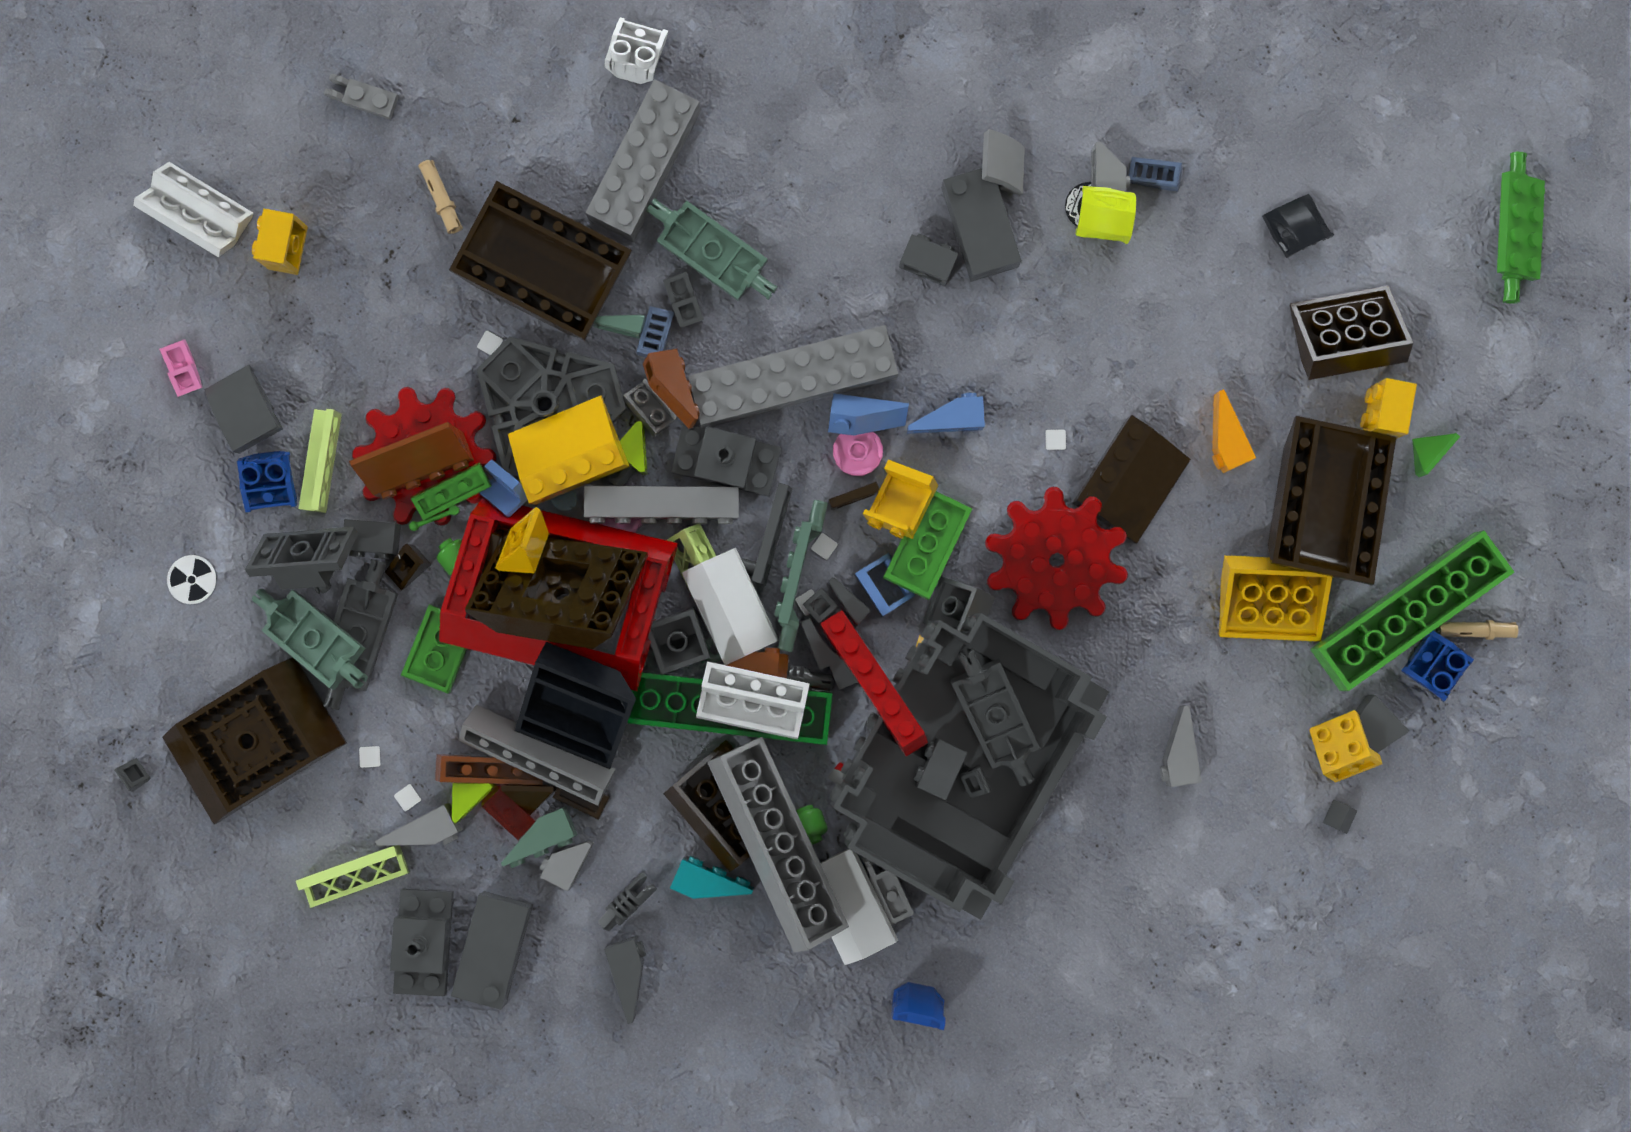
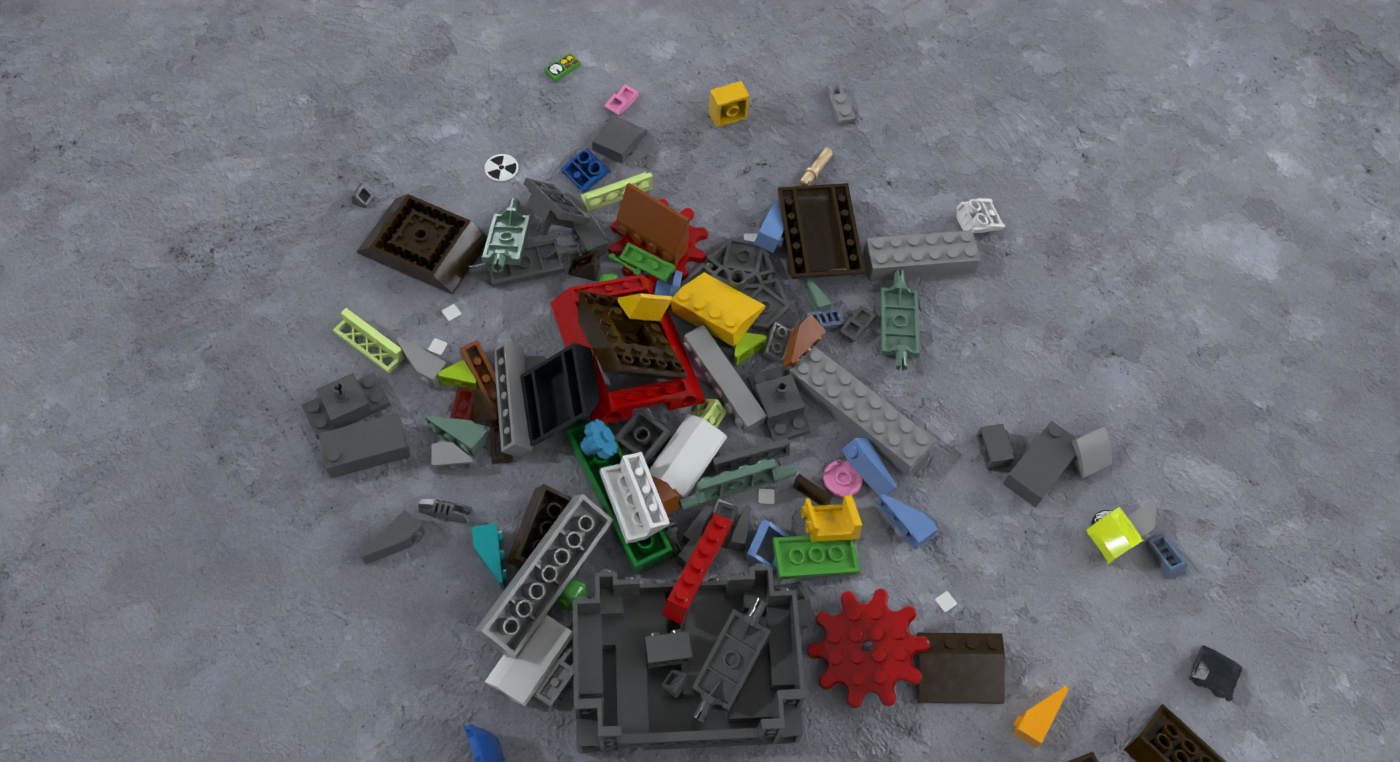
camera: 55 degrees right, 25 degrees down
(78, 410) = (562, 67): none -> tile
(194, 209) = (714, 60): white slope -> none
(430, 660) = (536, 313): bright green tile -> none
(499, 314) = (771, 230): none -> medium blue slope
(663, 697) = (598, 440): none -> dark azure plant

